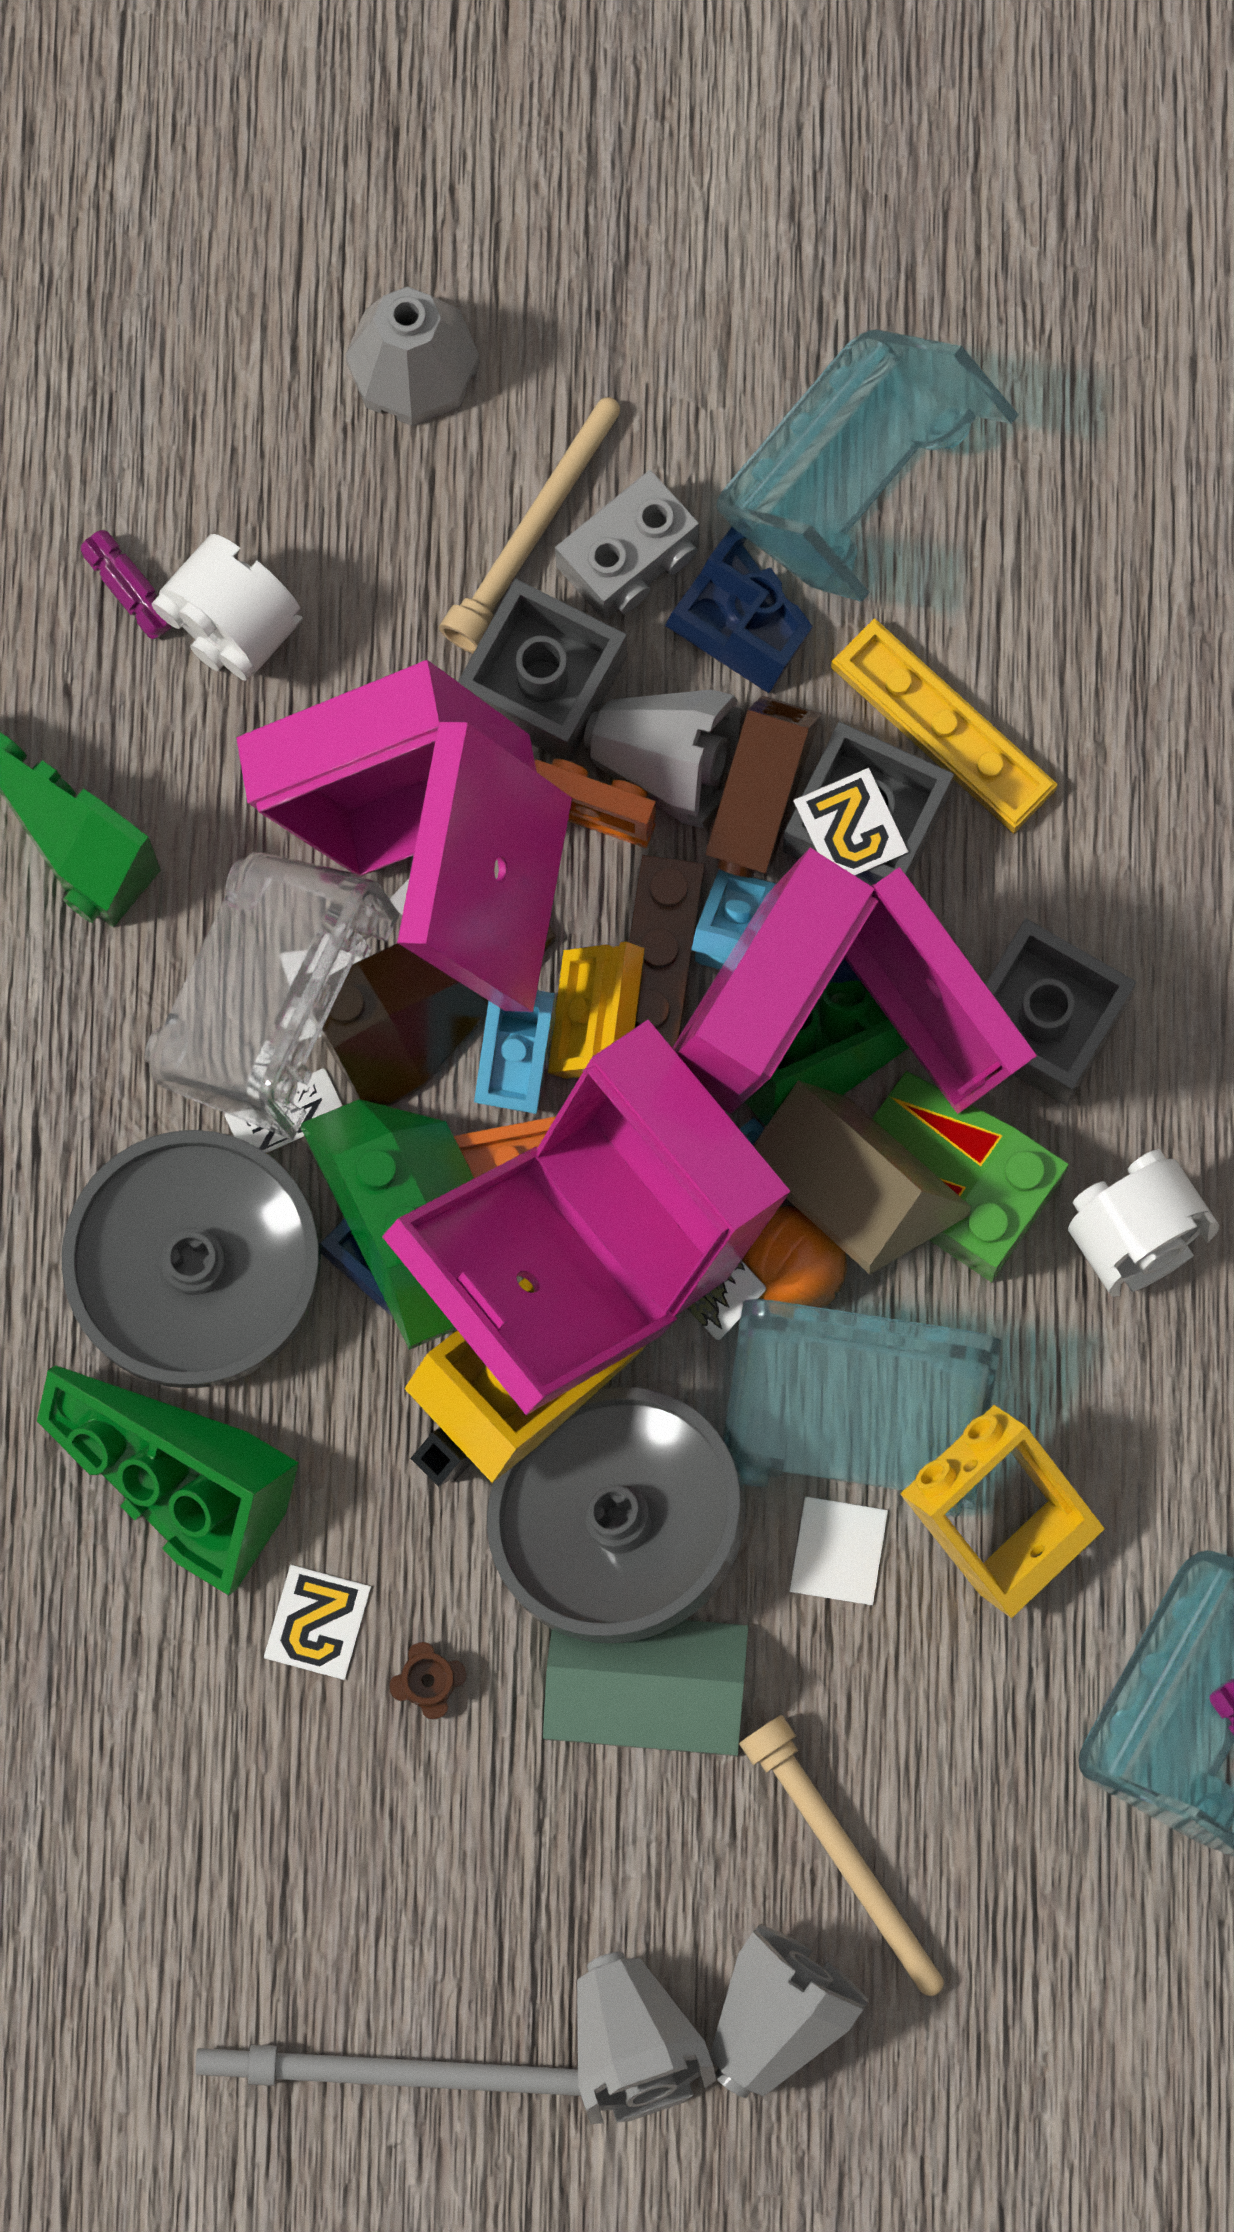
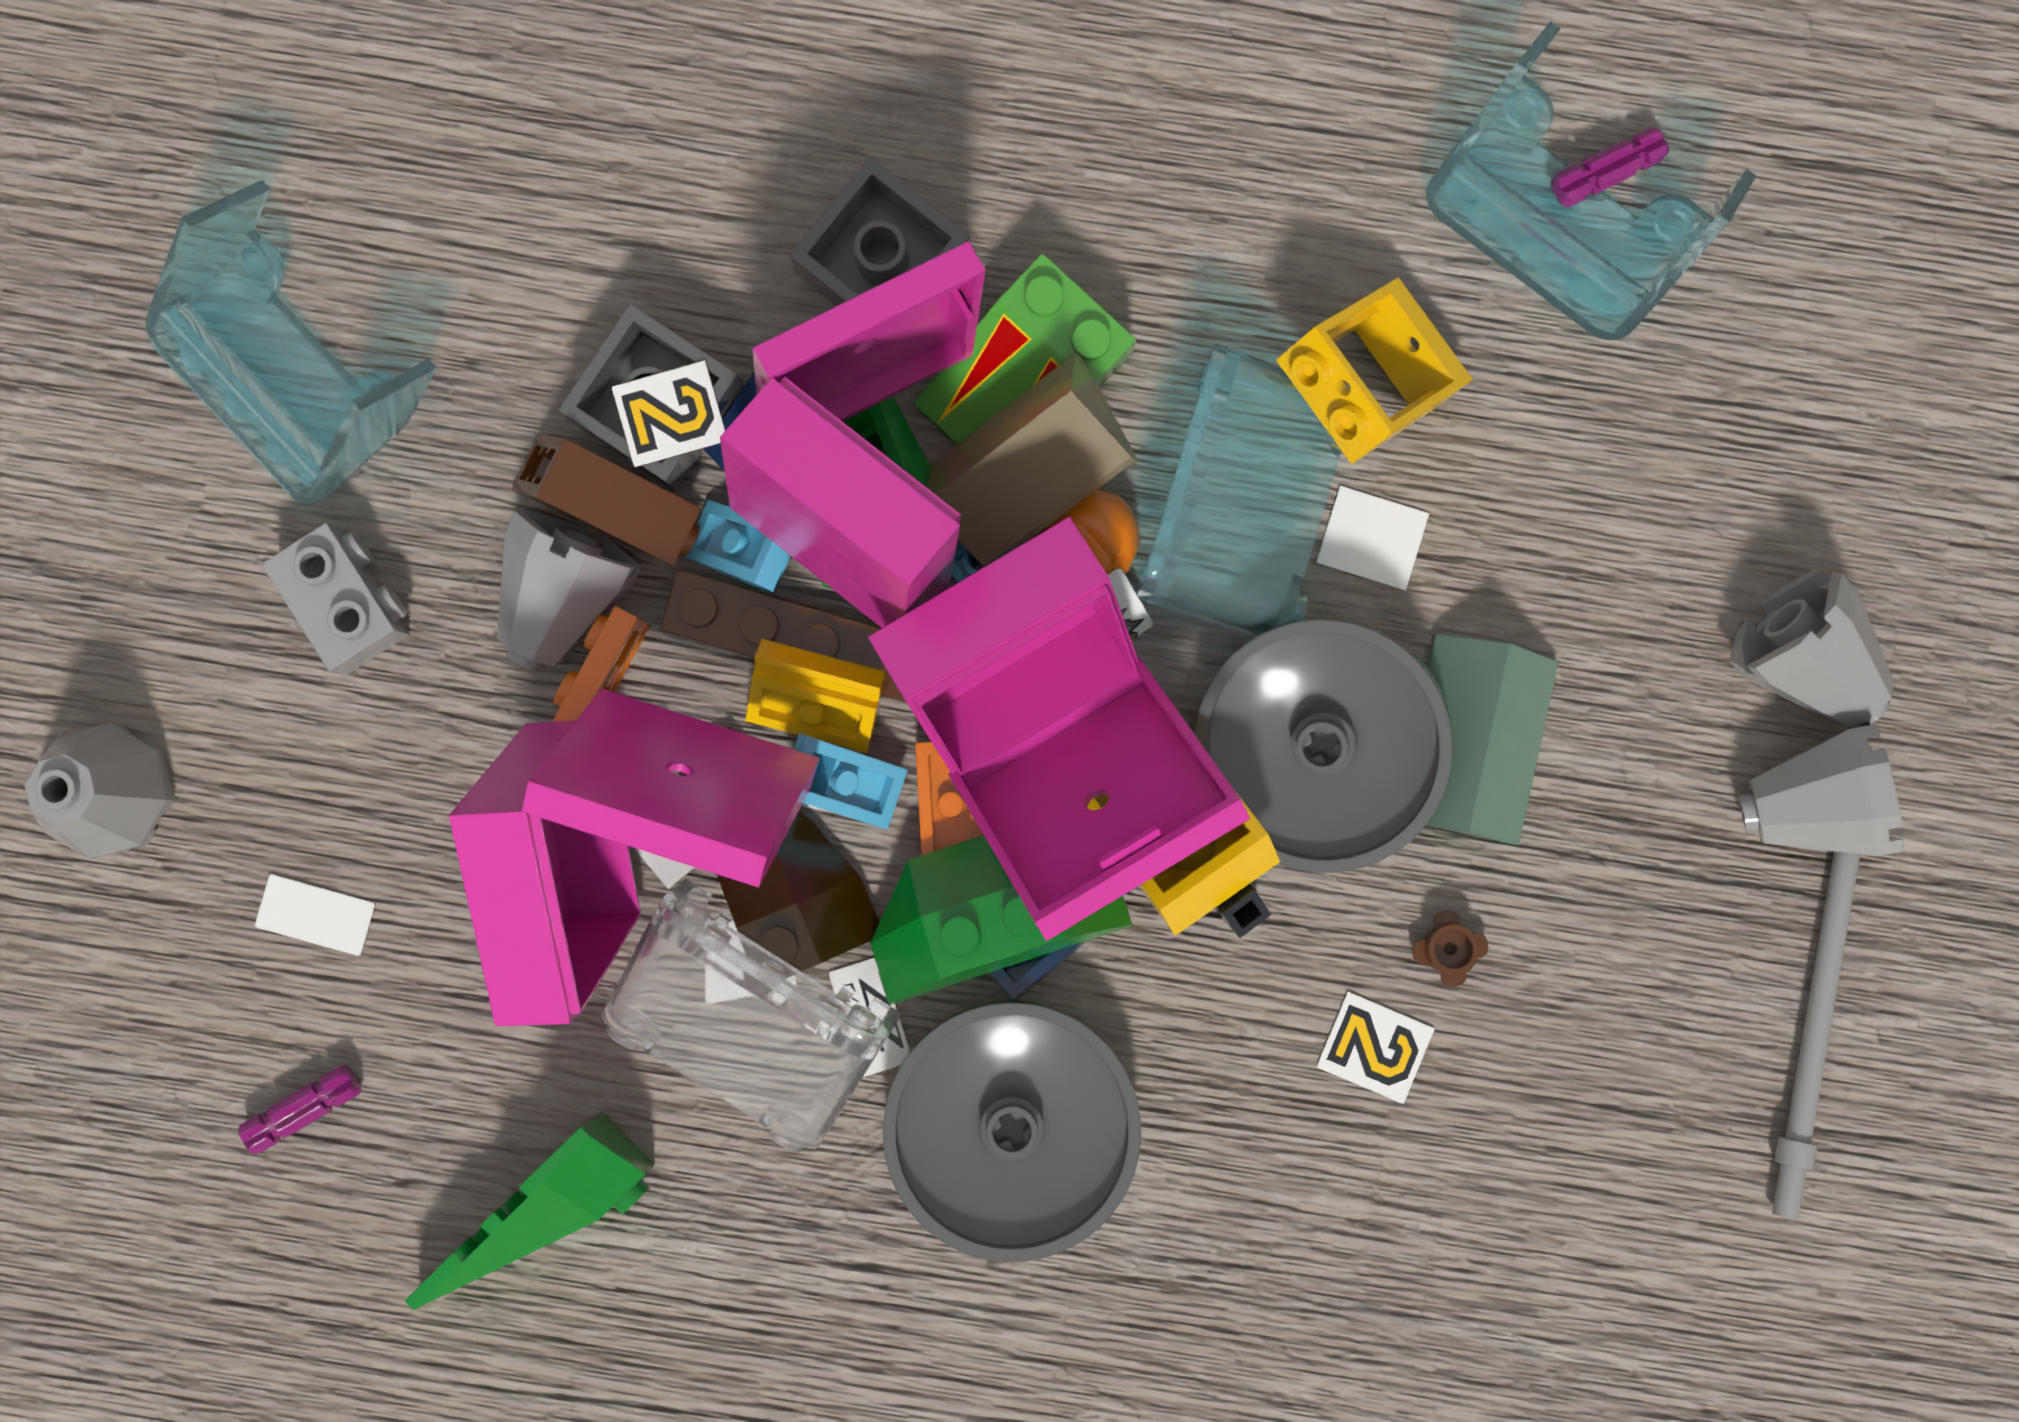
camera: 90 degrees left, 10 degrees up
(191, 1477) = (1227, 1149): green wedge -> none
(228, 607) = (342, 1010): white brick -> none
(319, 569) = (314, 915): none -> white sticker
(467, 622) = (392, 767): tan piece -> none
(545, 667) = (454, 701): dark grey brick -> none
(741, 615) = (426, 496): dark blue slope -> none
(775, 1751) = (1558, 627): tan piece -> none
(944, 725) = (569, 314): yellow tile -> none
(1141, 1223) = (1110, 192): white brick -> none

